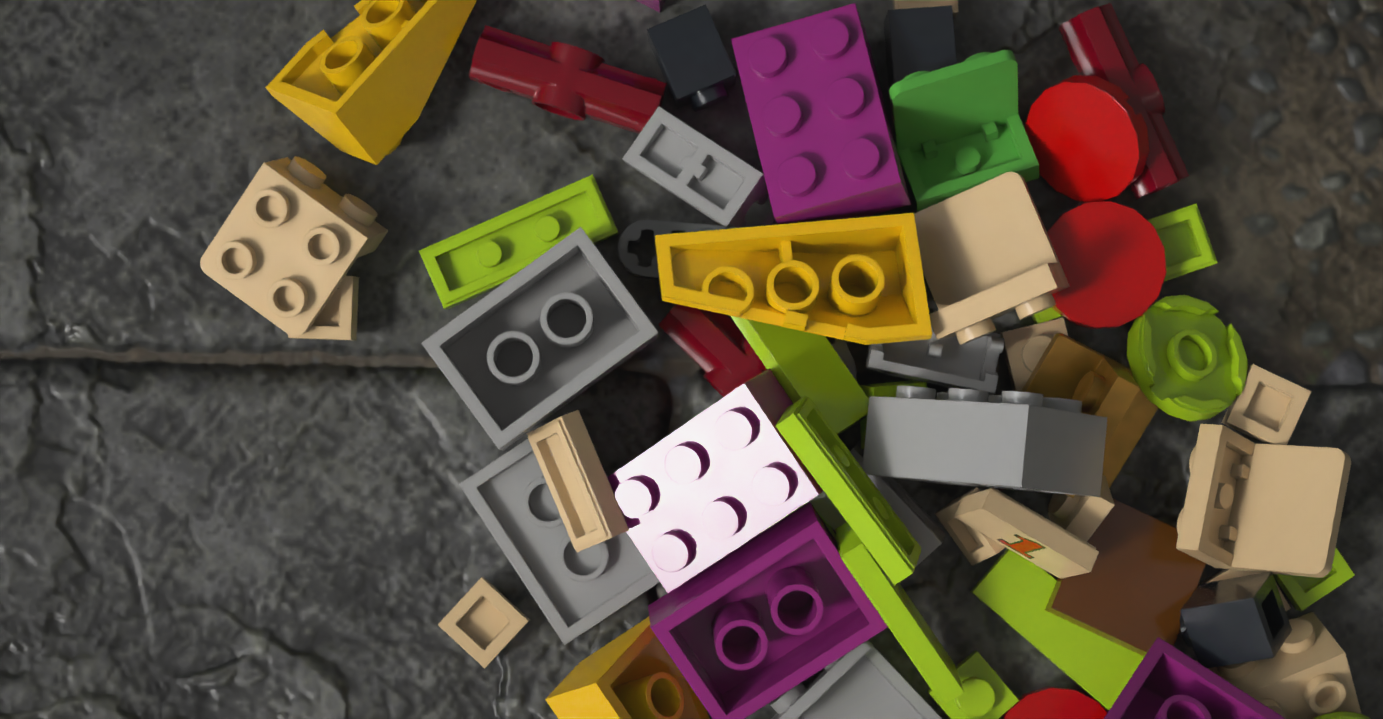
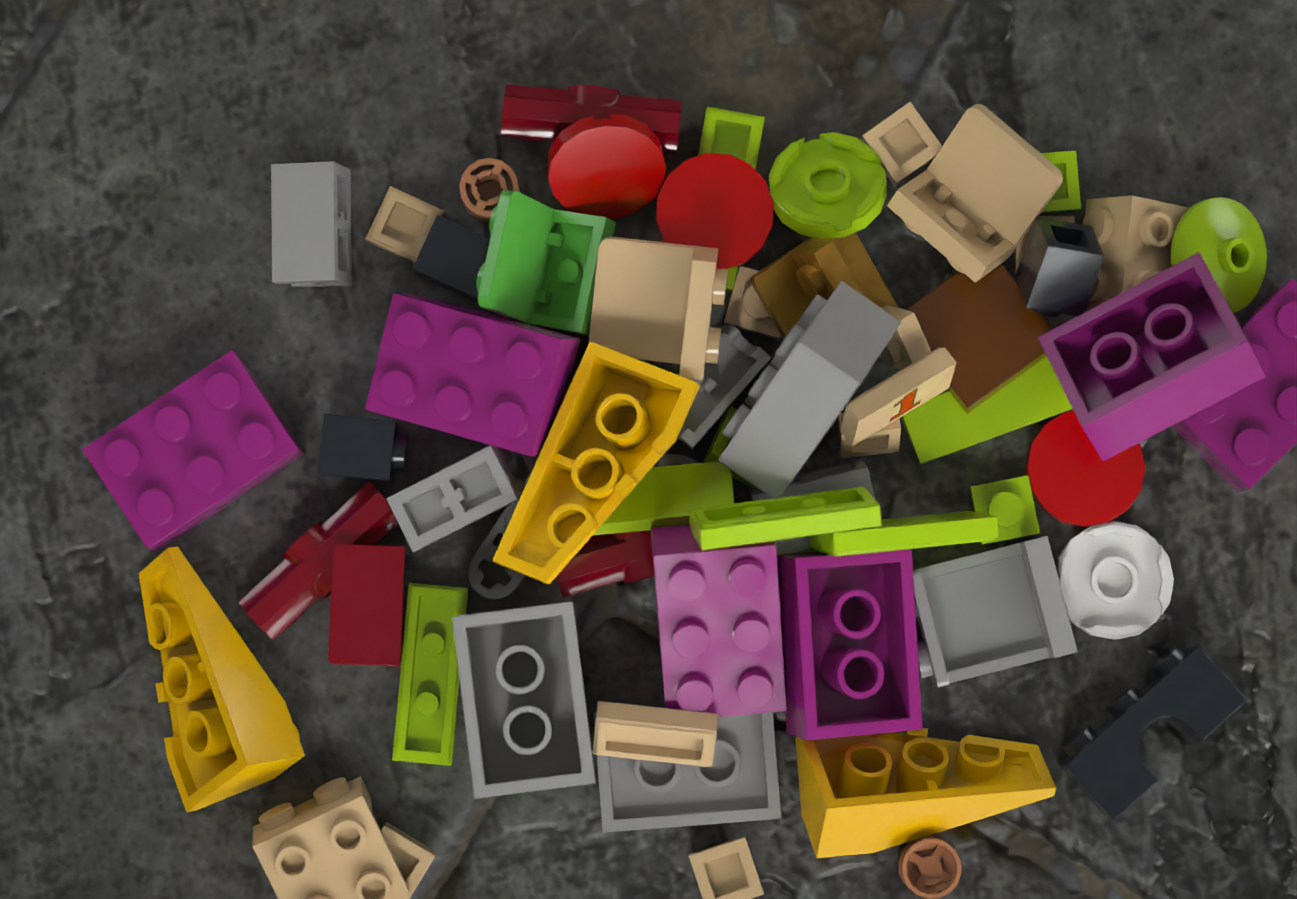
camera: 65 degrees left, 0 degrees up
(549, 145) = (366, 605): none -> dark red panel
(1000, 22) = (482, 198): none -> nougat wheel

